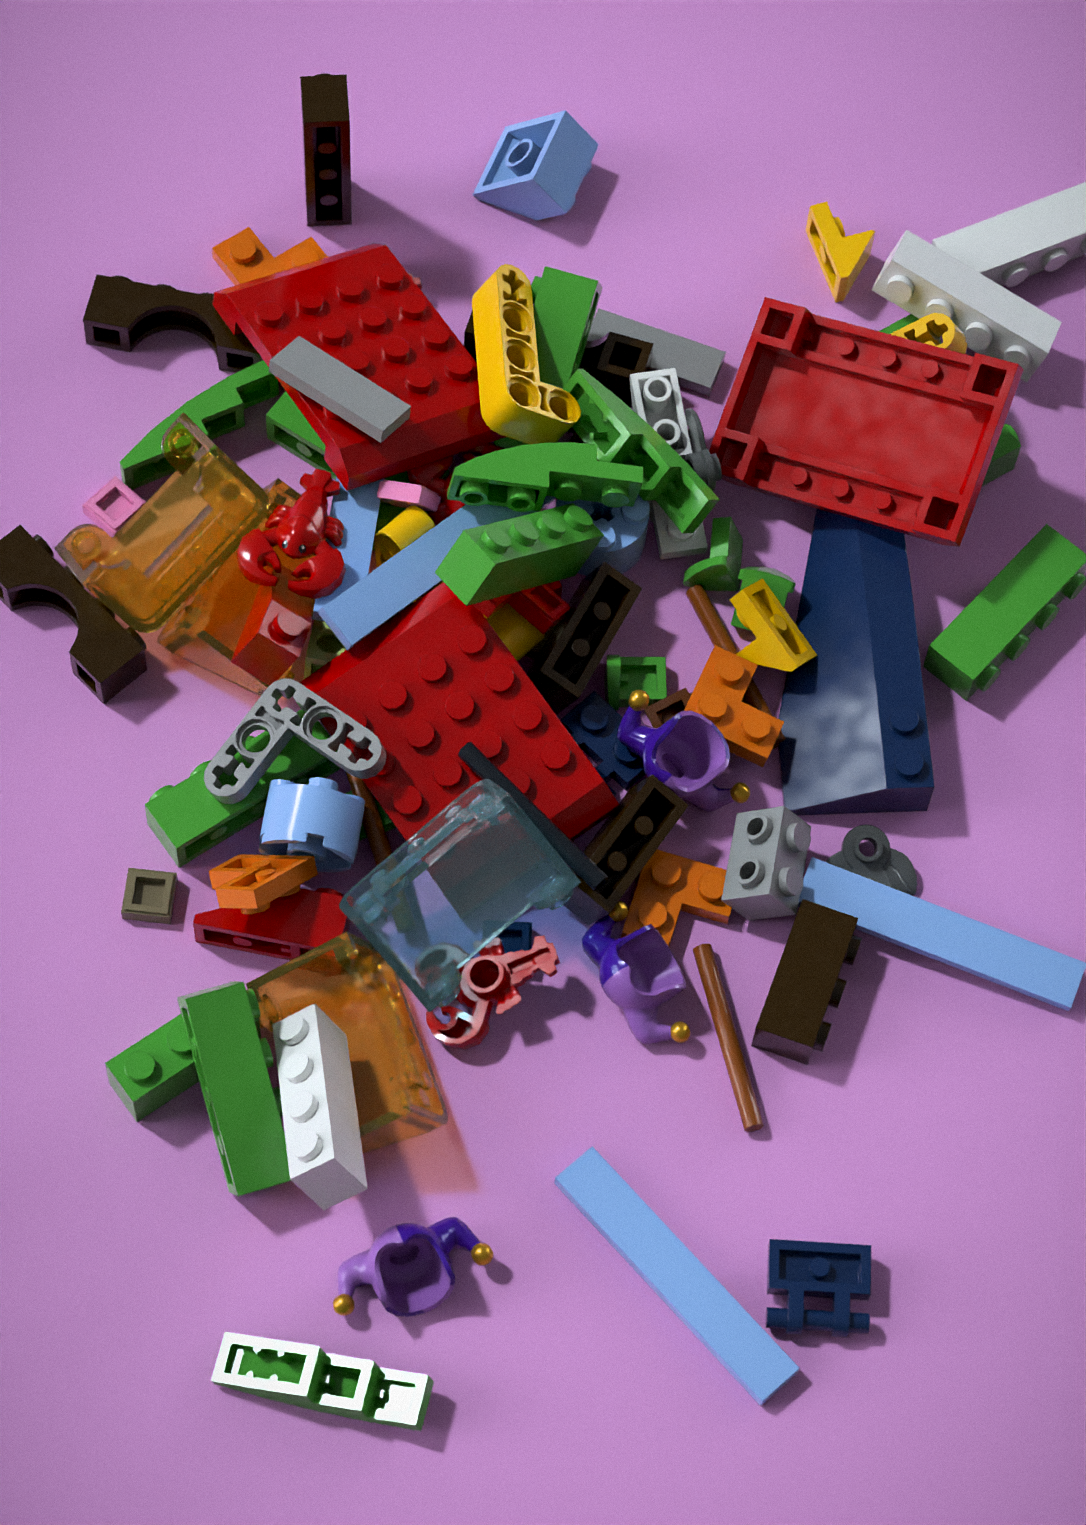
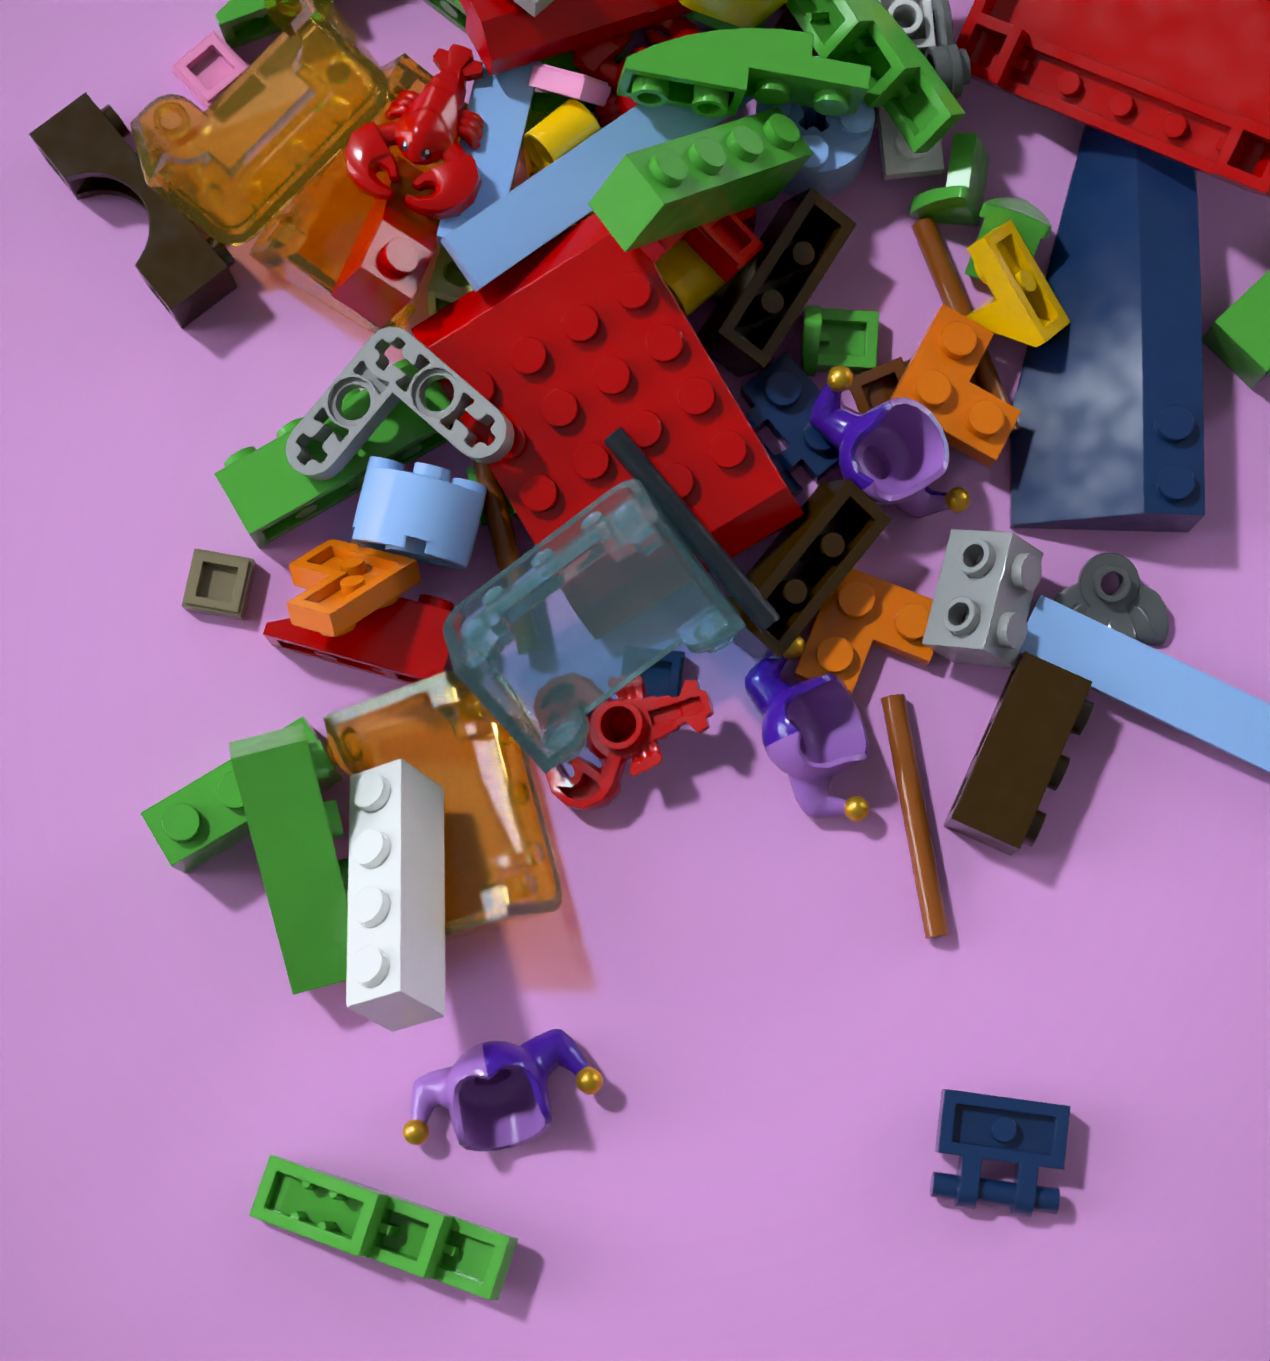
camera: 10 degrees right, 15 degrees up
(676, 1276) = (827, 1122): light blue tile -> none

